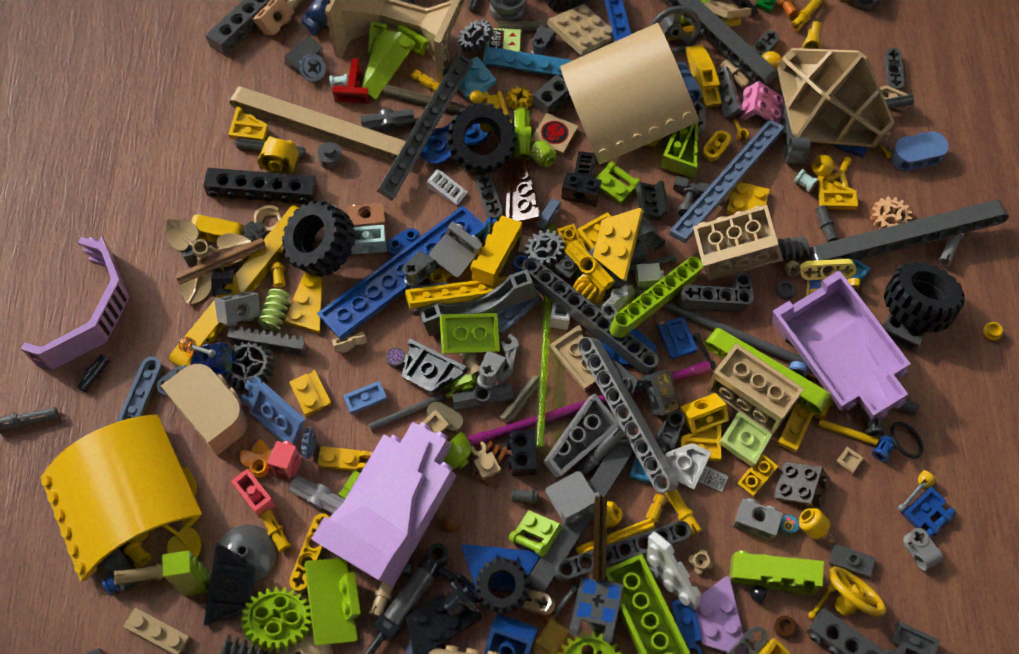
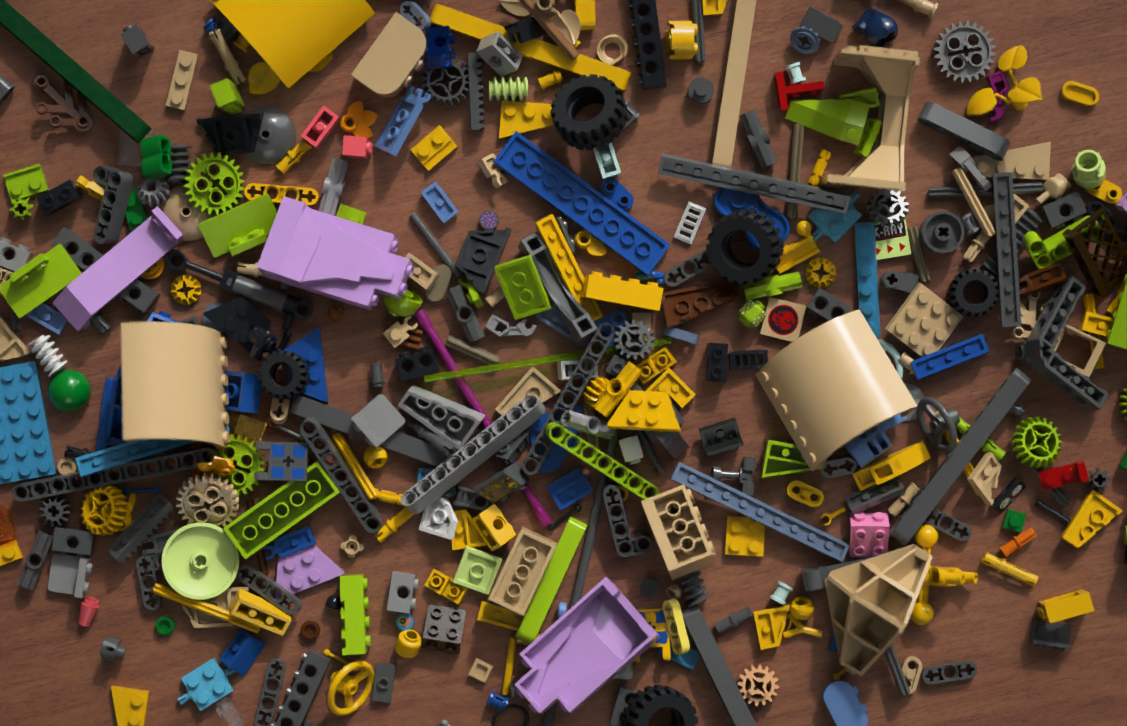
camera: 80 degrees right, 25 degrees up
(189, 345) = (447, 21): clear orange hinge -> none
(254, 231) = (590, 41): dark grey gear -> none
(308, 443) = (380, 163): sand blue gear -> none
(342, 458) = (375, 198): yellow hinge -> none
(374, 211) = (633, 161): nougat brick -> none
(418, 269) = (582, 221): dark grey piece -> none
(456, 250) = (608, 251): light grey bracket -> none
(490, 369) = (490, 316): light grey piece -> none
(538, 527) = (348, 394): lime plate -> none
(600, 533) = (340, 452): dark brown axle -> none
(613, 187) = (730, 394): lime plate -> none
(669, 572) = (335, 509): white plate -> none
(713, 478) = (435, 547): white sticker -> none

